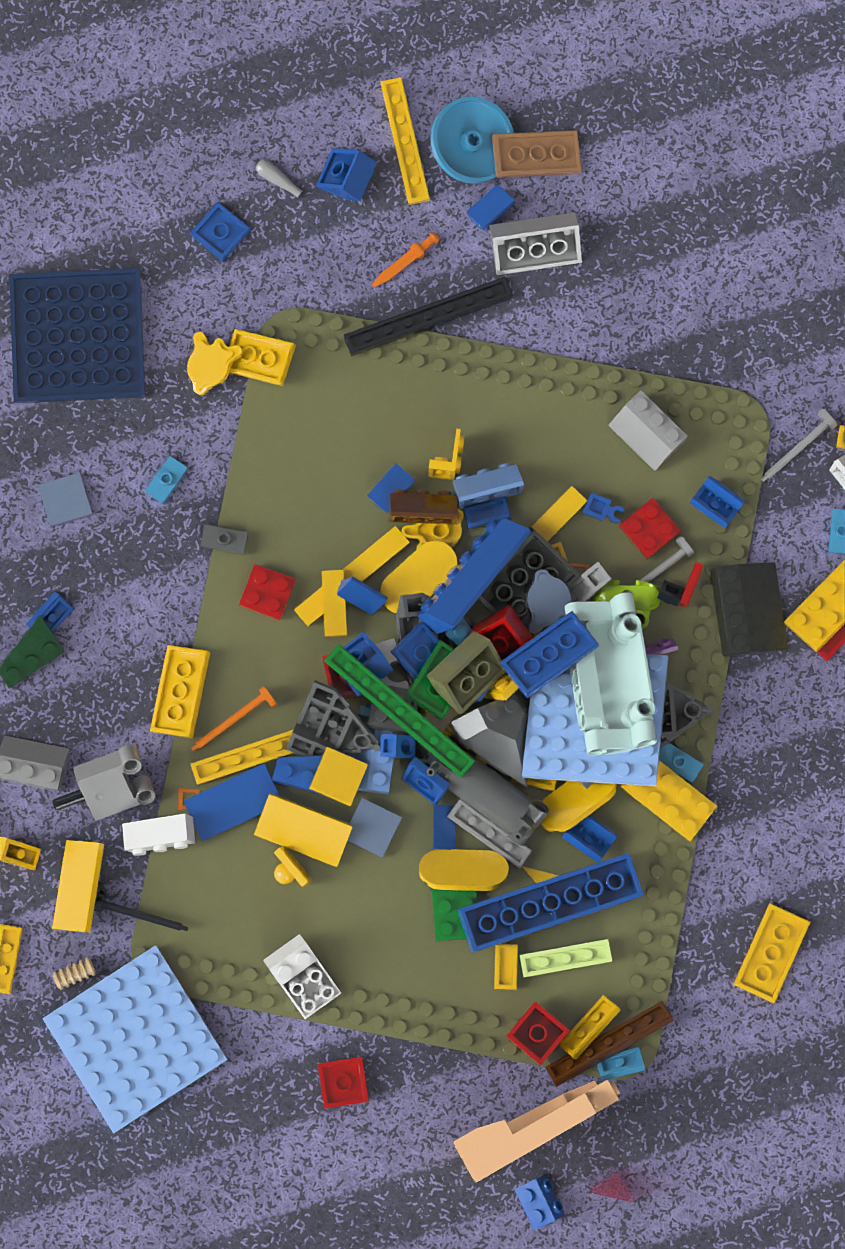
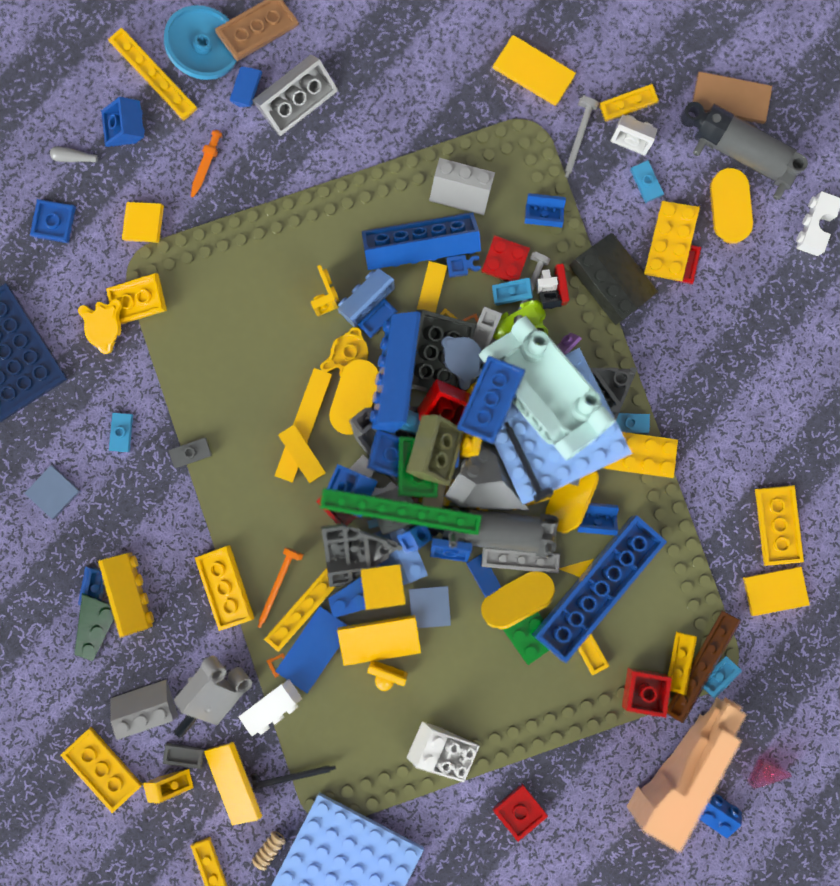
camera: 30 degrees left, 5 degrees up
(43, 833) = (183, 755): none -> dark grey tile
(82, 641) = (126, 594): none -> yellow slope
(267, 592) = (246, 474): red plate -> none
(309, 284) = (142, 222): none -> yellow tile
(361, 595) = (318, 436): blue slope -> none
(393, 480) = (294, 341): blue slope -> none
(422, 507) = (326, 342): reddish brown slope -> none
(428, 316) = (246, 195): black tile -> none
(544, 774) = (540, 495): none -> black piece
(565, 958) = (632, 621): yellowish green plate -> none
(575, 461) = (421, 241): none -> blue slope
(637, 563) = (512, 291): none -> dark azure plate
(676, 574) = (546, 282): none -> white tile
(729, 1016) = (776, 591): none -> yellow tile
(792, 354) = (534, 70): none -> yellow tile

